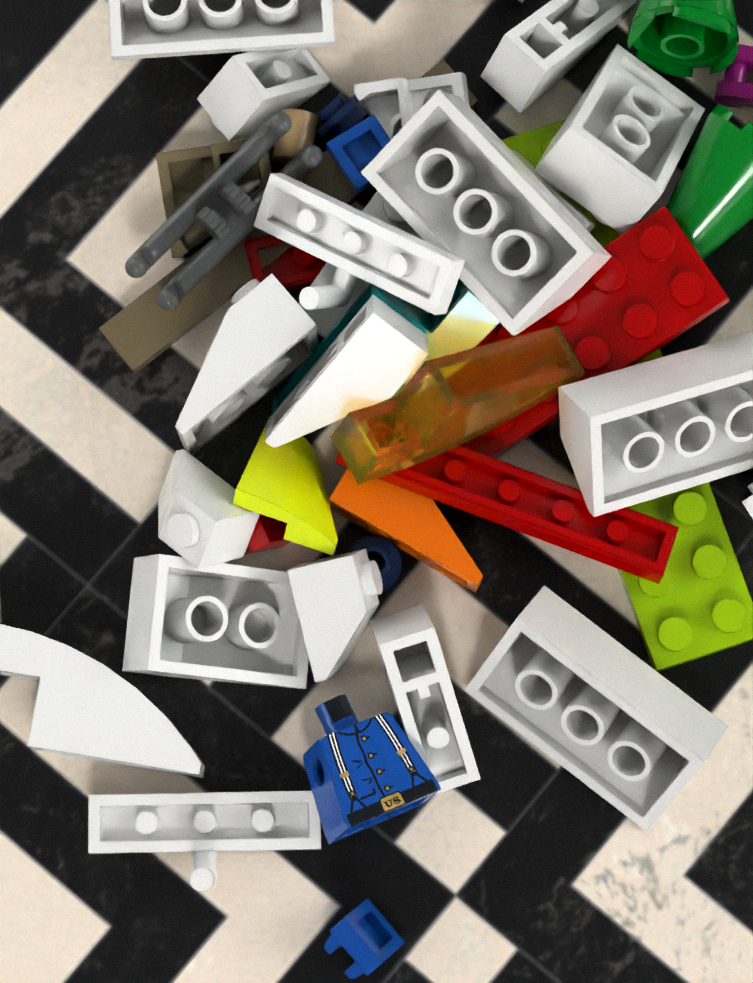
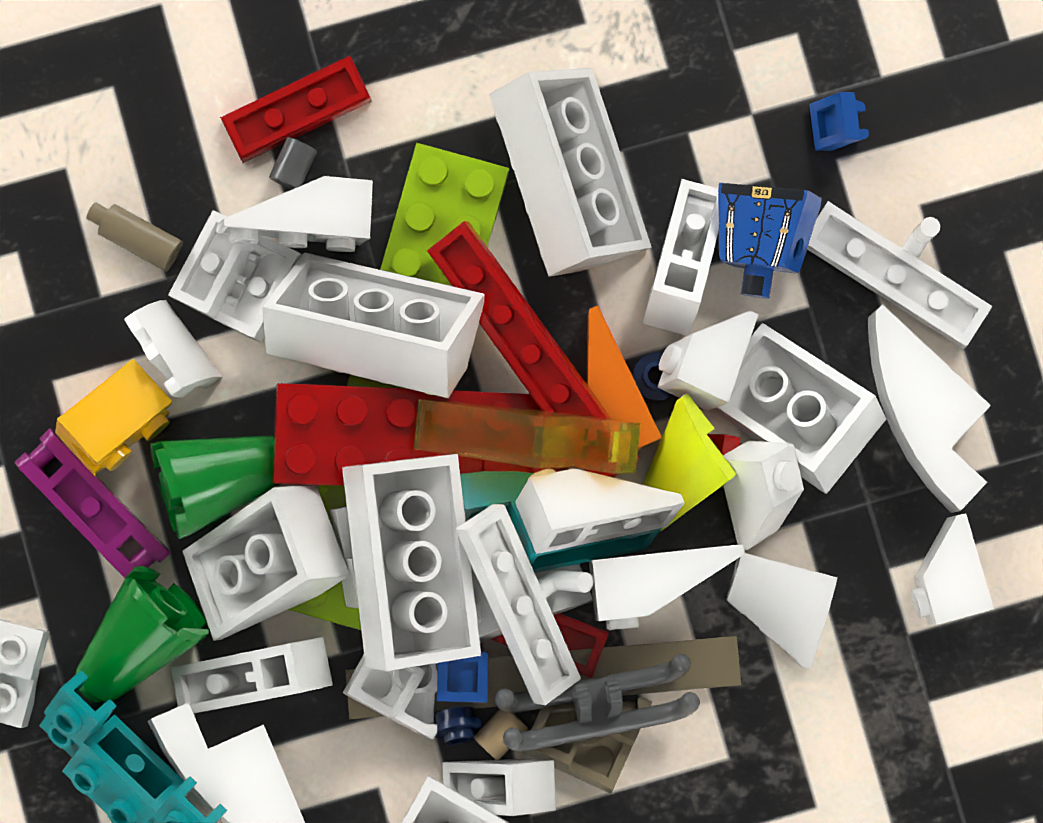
camera: 150 degrees left, 5 degrees up
(109, 431) = (783, 602): none -> white slope

